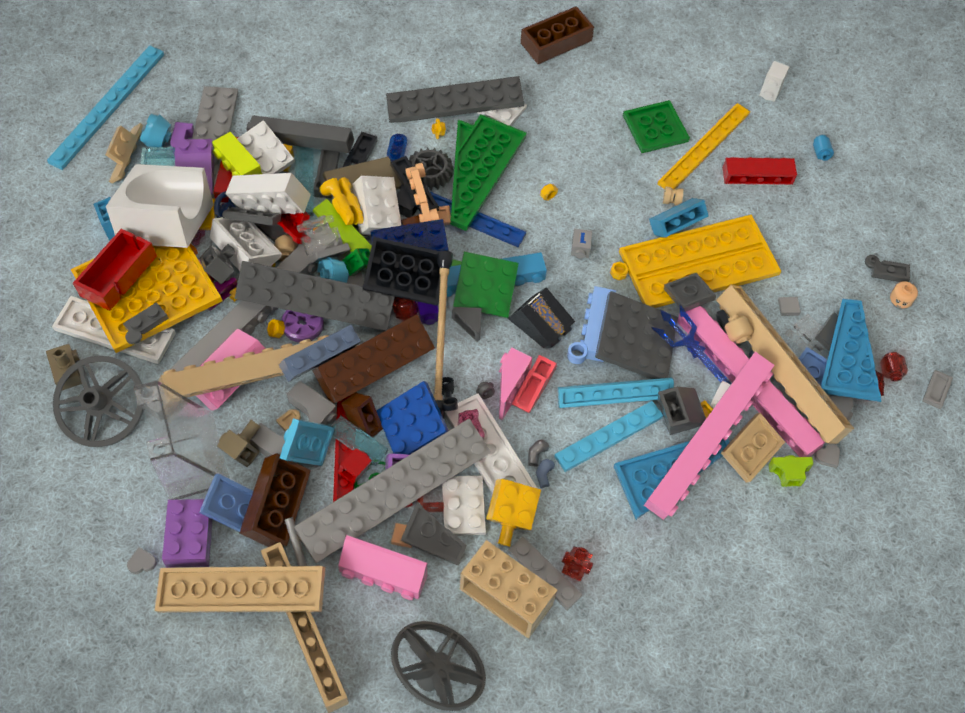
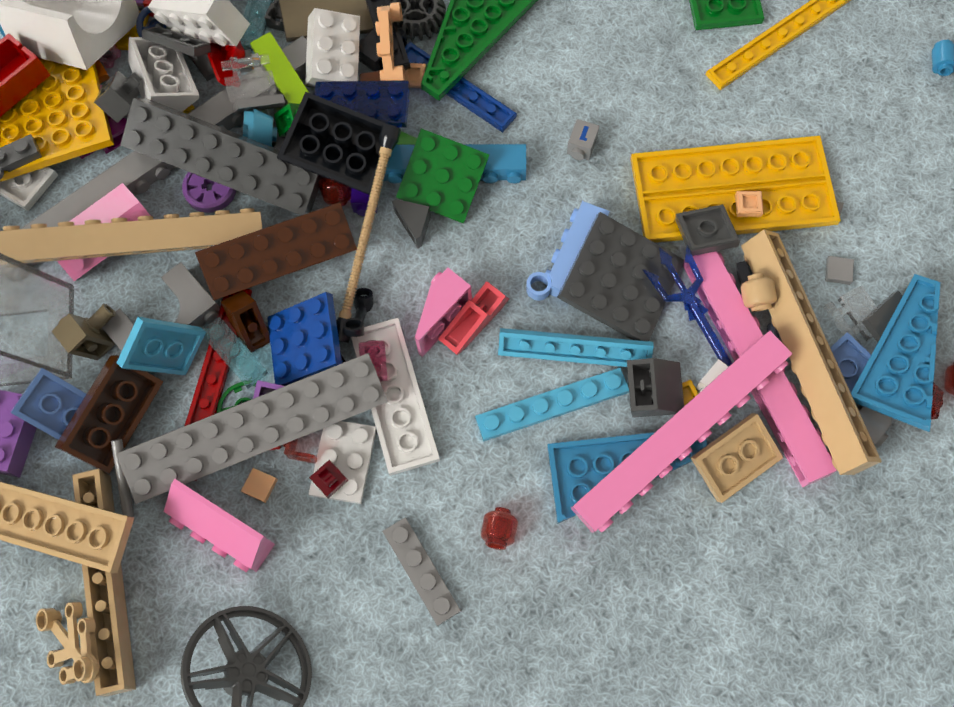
camera: 20 degrees right, 10 degrees up
(276, 328) = (174, 189): yellow tile -> none
(285, 246) = (209, 86): tan head -> none
(286, 419) = (162, 309): tan tile -> none
(313, 684) = (85, 664): none -> tan plant
(319, 353) = (204, 233): sand blue brick -> none
(344, 201) = (290, 44): yellow piece -> none
(355, 466) = (219, 385): red brick -> none
(432, 537) = (290, 496): dark grey wing -> none
(458, 518) = (328, 479): none -> dark red tile
(485, 387) = (409, 311): dark grey plate -> none
(507, 589) = (360, 588): tan hose -> none
(512, 507) = (397, 480): yellow brick -> none
(538, 447) = (451, 405): flat silver arm -> none
(542, 471) = (453, 435): sand blue arm -> none
(543, 318) = (506, 233): black slope -> none
(549, 191) = (559, 64): yellow tile -> none
(577, 563) = (462, 569): clear red brick -> none
(595, 530) = (499, 528): none -> clear red head
(619, 270) = (623, 184): yellow tile -> none
(669, 195) = (715, 93): tan wheel -> none
(678, 217) = (720, 125): dark azure brick -> none
(714, 269) = (749, 204): none -> light nougat tile
(759, 171) = (848, 77): red brick -> none
(791, 469) = (781, 497): lime brick -> none
(828, 456) = (838, 487): light grey tile -> none

